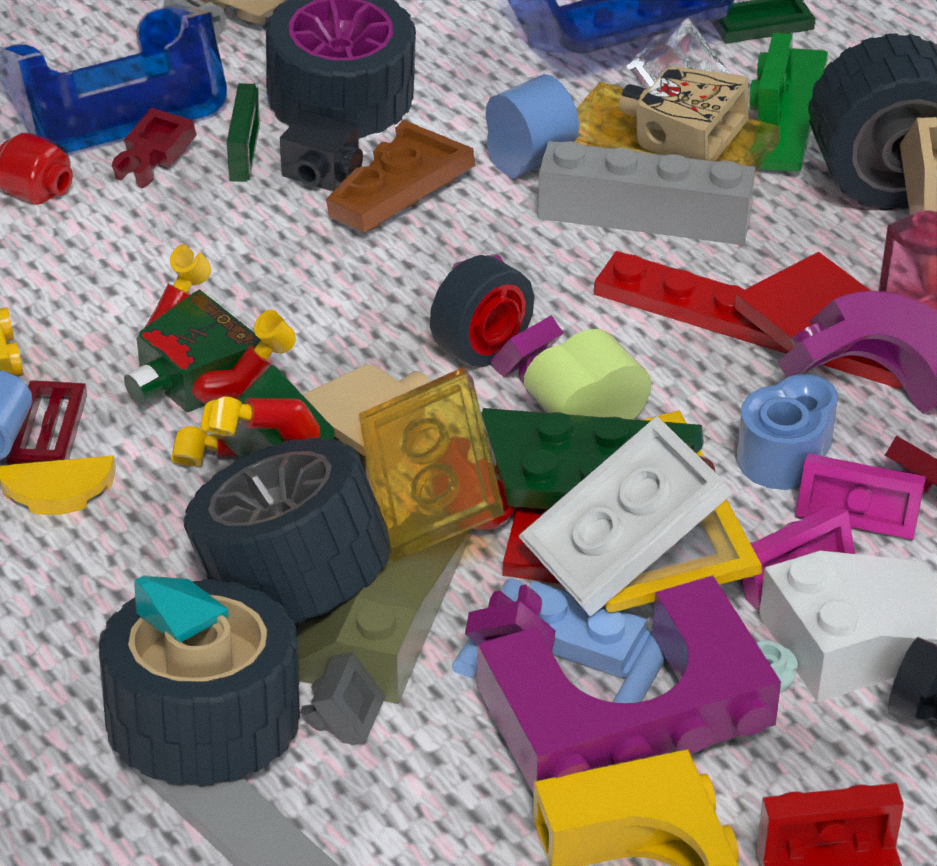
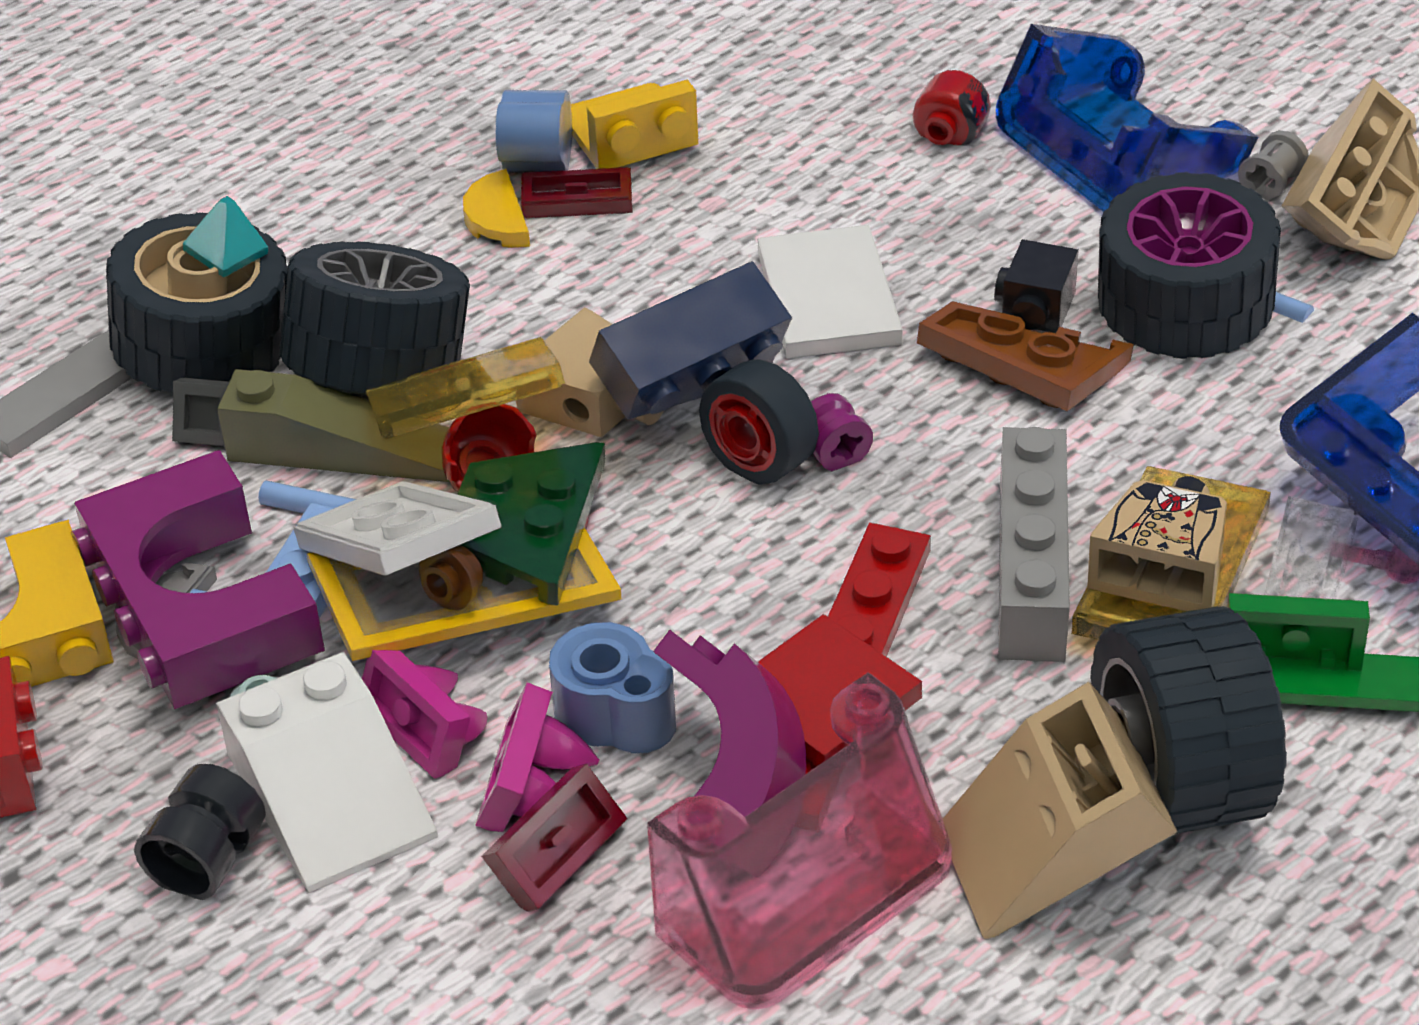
camera: 85 degrees right, 0 degrees up
(153, 141) = (1026, 179): dark red plate -> none
(197, 347) = (683, 244): torso -> none
(243, 132) = (1055, 222): dark green tile -> none
(260, 417) = (521, 279): torso -> none
(277, 273) = (832, 291): none -> white tile
(395, 315) = (689, 341): none -> dark blue wedge
(508, 617) = (284, 496): magenta tile -> none
(524, 122) = (1109, 418): medium blue piece -> none
(525, 346) = (725, 477): magenta tile -> none
(589, 378) = (657, 516): yellowish green piece -> none

